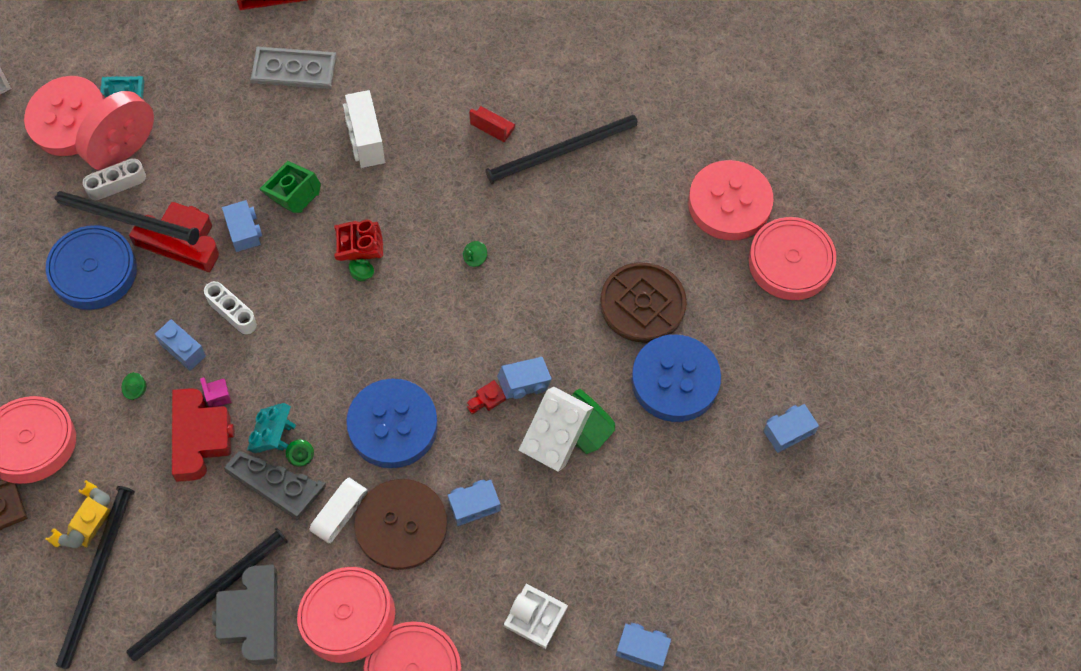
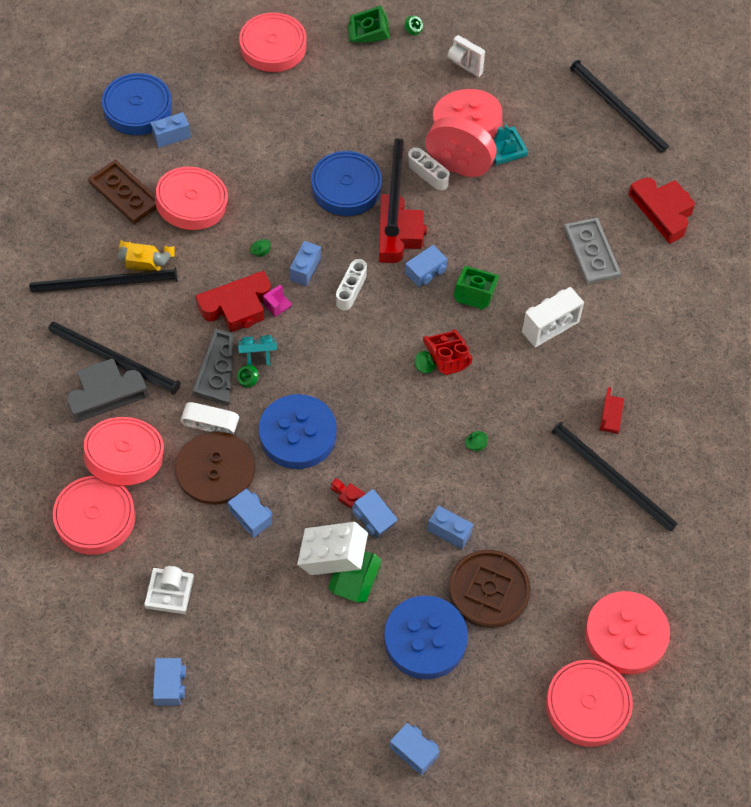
camera: 70 degrees right, 5 degrees down
(565, 312) = (450, 527): none -> medium blue brick

